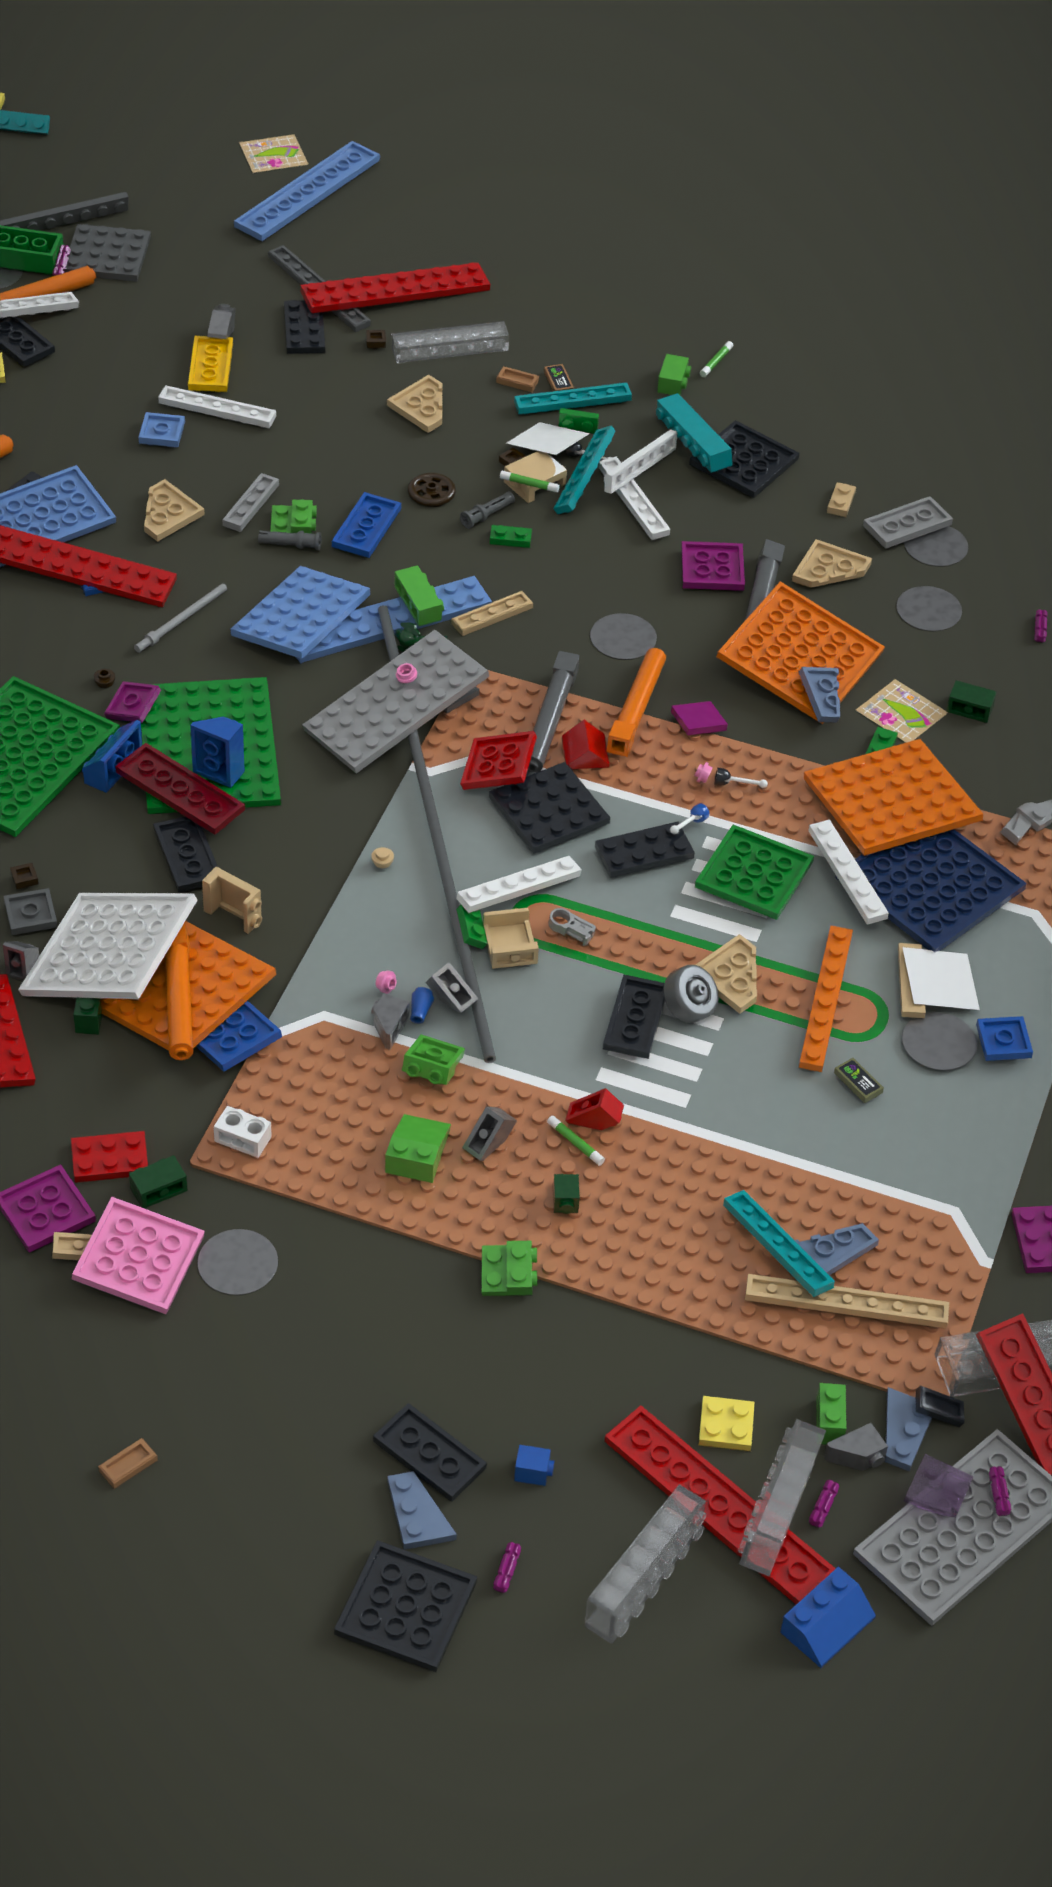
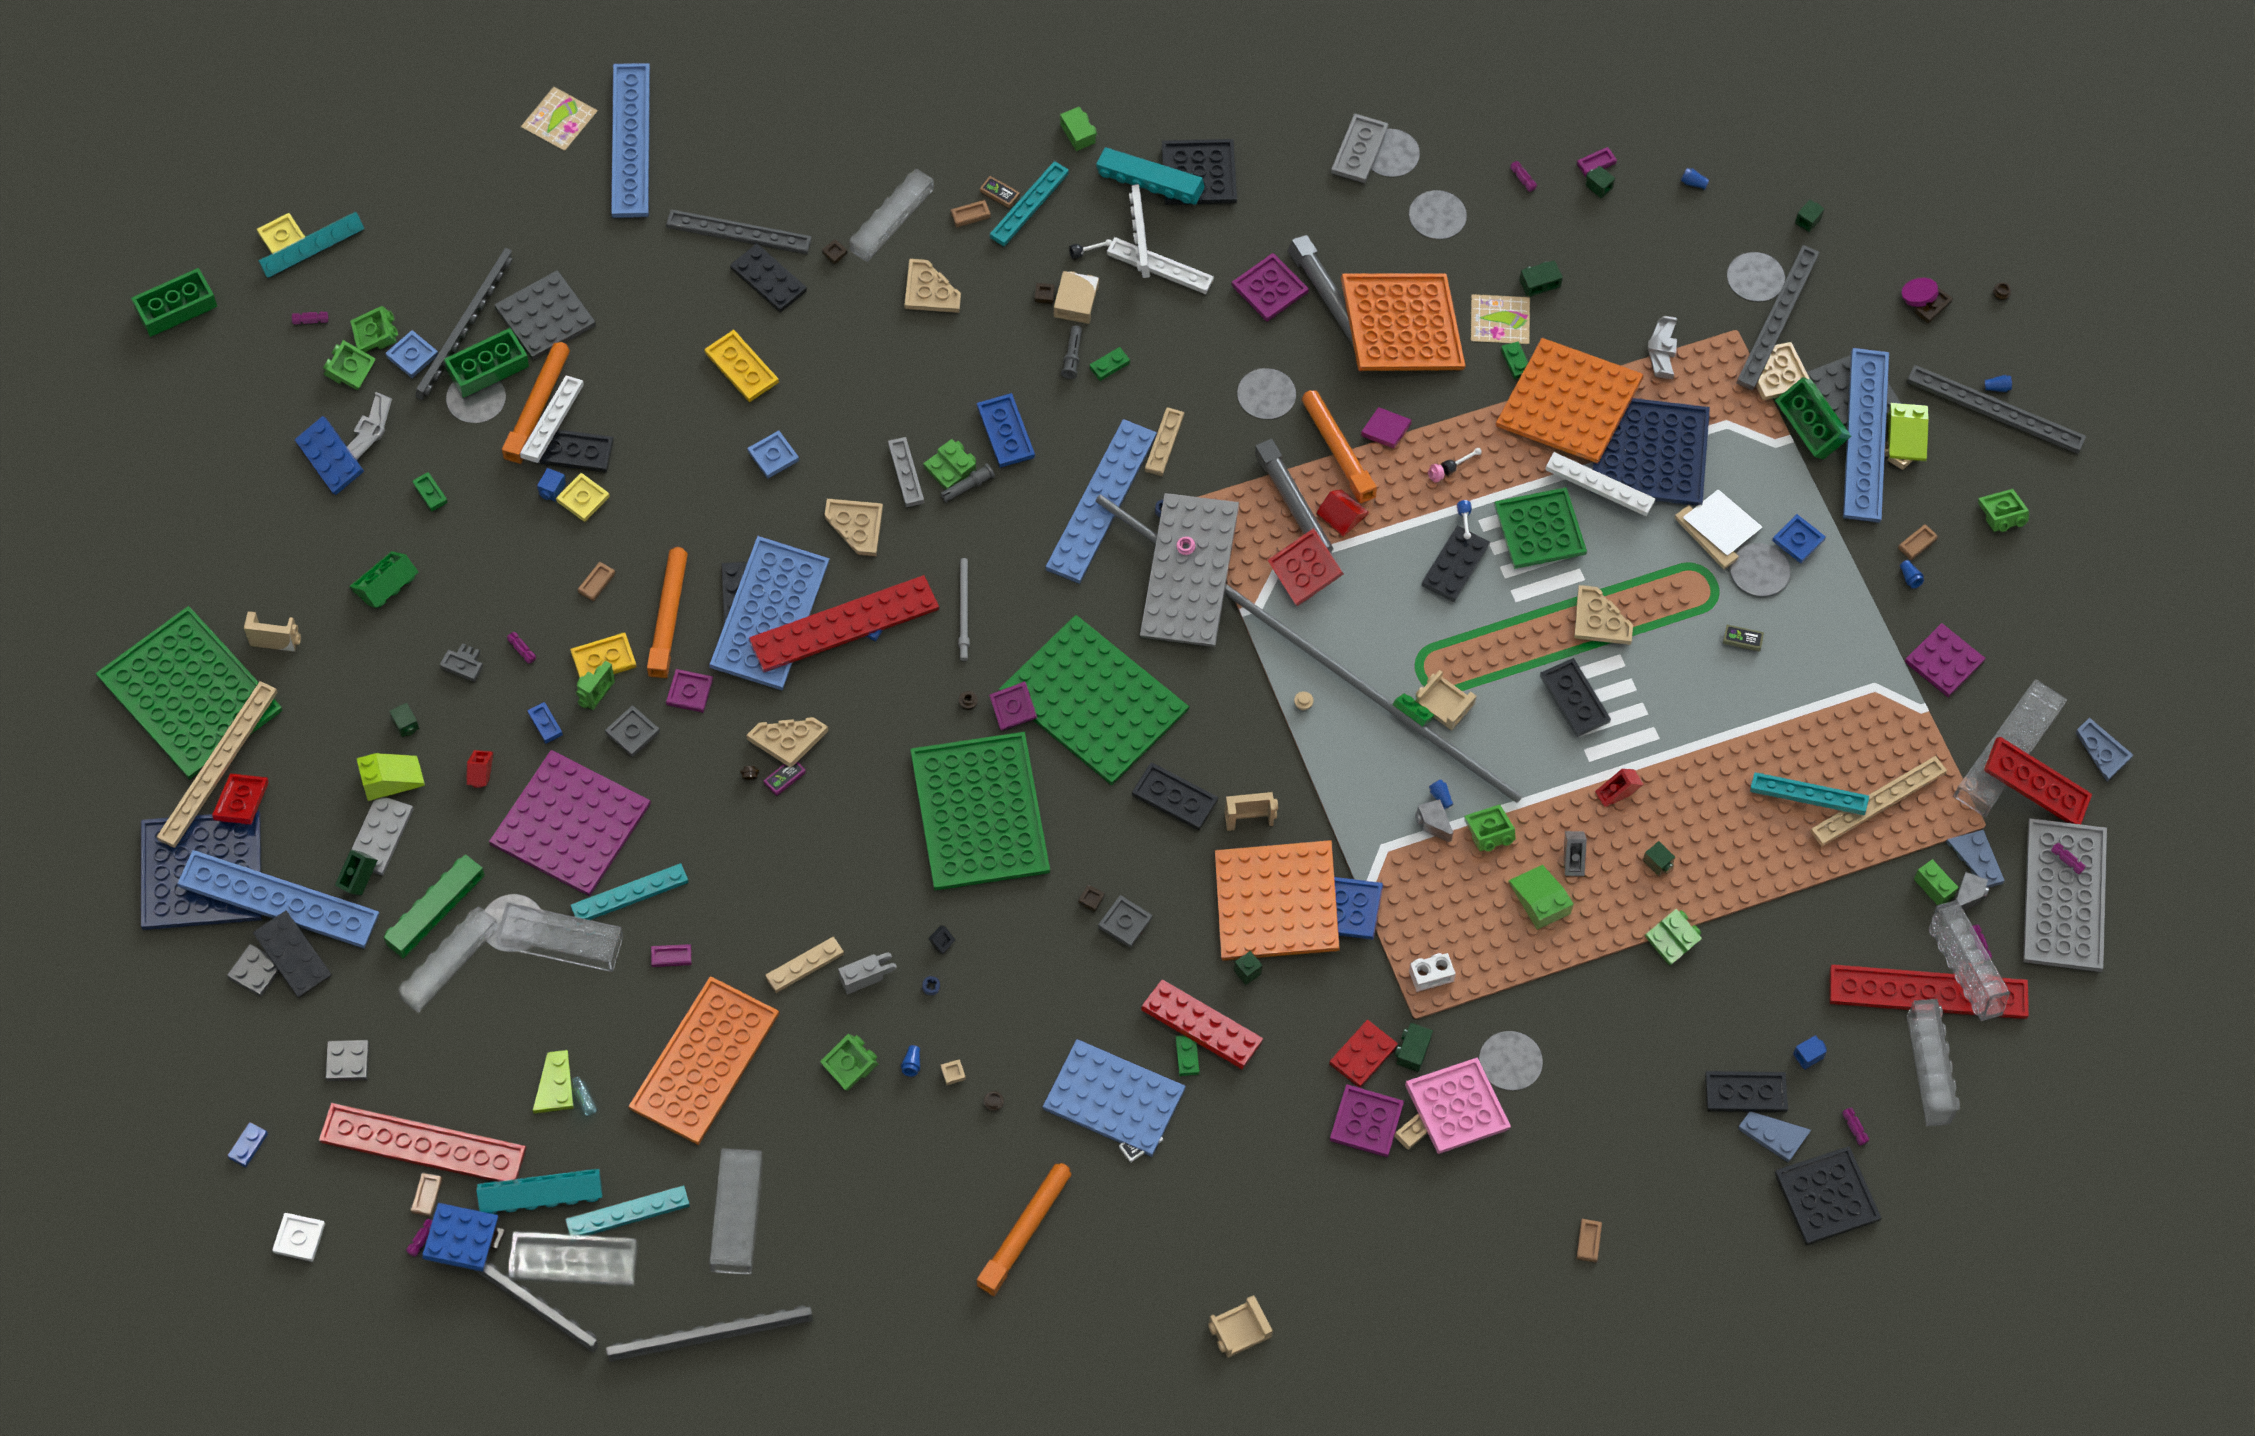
camera: 40 degrees left, 15 degrees up
(19, 959) = (1163, 961): flat silver slope -> none
(61, 260) = (533, 362): magenta axle -> none
(101, 769) = (1049, 760): blue slope -> none
(108, 945) = (1215, 908): white plate -> none
(179, 997) = (1260, 878): orange brick -> none
(180, 788) = (1124, 751): dark red plate -> none
(217, 406) = (789, 403): white plate -> none
(218, 749) = (1133, 705): blue slope -> none
(222, 322) = (715, 323): flat silver slope -> none
(300, 612) = (1044, 542): medium blue plate -> none
(386, 981) = (1404, 794): bright pink plate -> none
(395, 287) = (798, 191): red plate -> none
(408, 636) = (1140, 507): dark green piece -> none
(418, 595) = (1113, 468): bright green brick -> none
(431, 489) = (1020, 375): dark brown plate -> none
(451, 988) = (1451, 768): flat silver slope -> none
(518, 884) = (1412, 655): white plate -> none
(529, 481) = (1088, 308): bright green bar -> none
(547, 438) = (1053, 256): white sticker -> none
(549, 807) = (1370, 577): black plate -> none
(576, 926) = (1473, 659): light grey piece -> none
(576, 1140) = (1624, 815): bright green bar -> none
(578, 420) = (1054, 223): green plate -> none
(584, 470) = (1107, 266): teal plate -> none
(690, 993) = (1595, 655): dark grey wheel -> none
(716, 359) = (1088, 87): bright green bar -> none
(726, 1423) = (1882, 936): light yellow plate -> none
(822, 692) = (1446, 345): sand blue wing -> none
(825, 999) = (1669, 591): orange plate -> none
(828, 1617) = (2047, 1013): blue slope -> none
(829, 564) = (1344, 227): tan plate -> none
(840, 1248) = (1841, 767): sand blue wing -> none
(841, 499) = (1295, 159): tan plate -> none
(938, 1487) = (2036, 883): clear purple plate -> none
(939, 1406) = (1987, 829): black tile -> none

